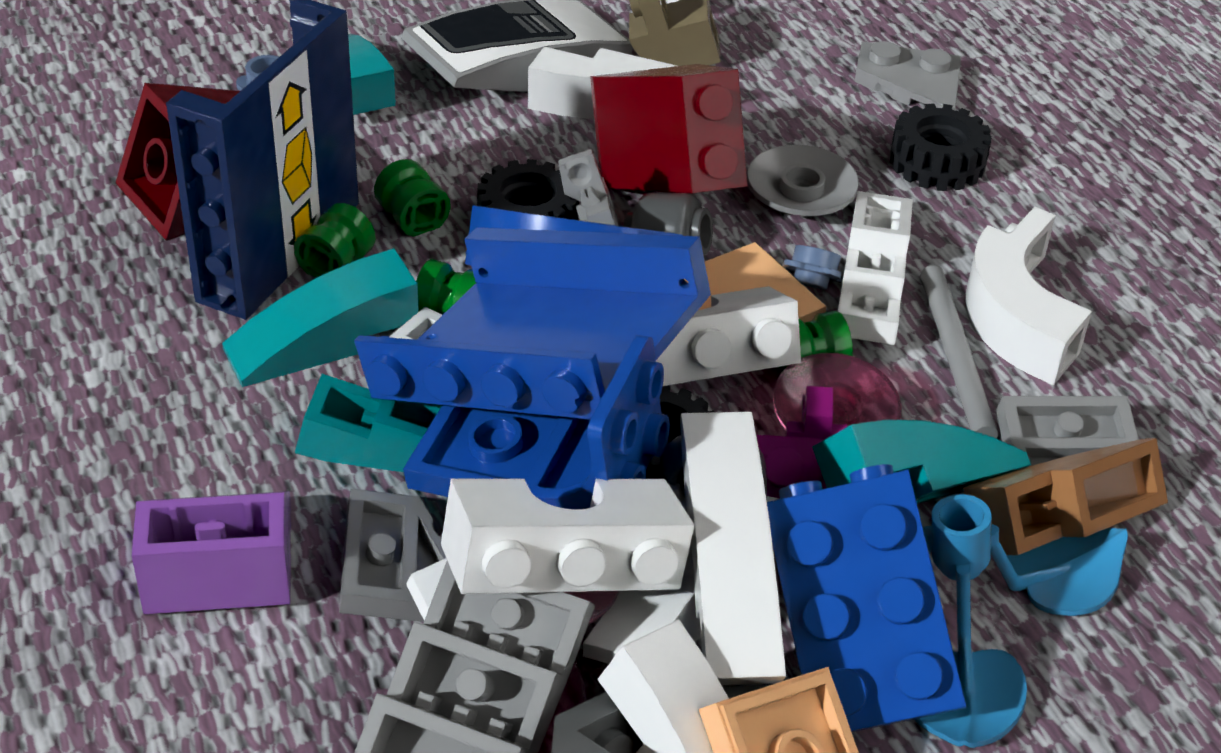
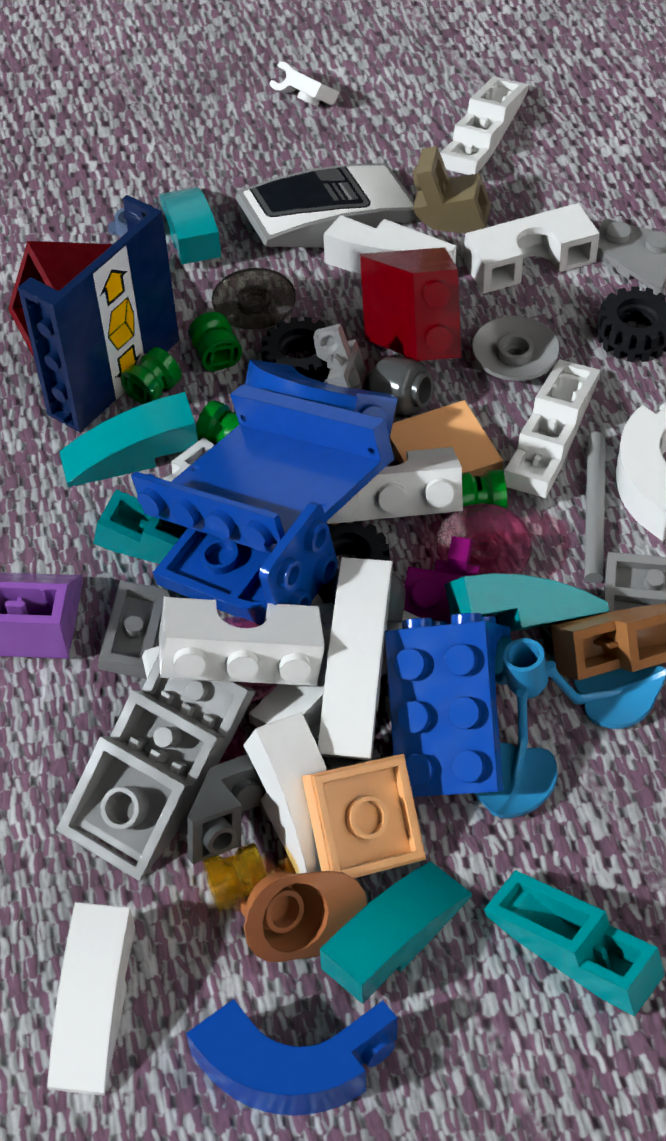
camera: 15 degrees right, 10 degrees up
(453, 145) = (254, 298): none -> clear smoke dish
(814, 59) = (559, 235): none -> white arch
(814, 266) = (502, 426): sand blue plate -> none

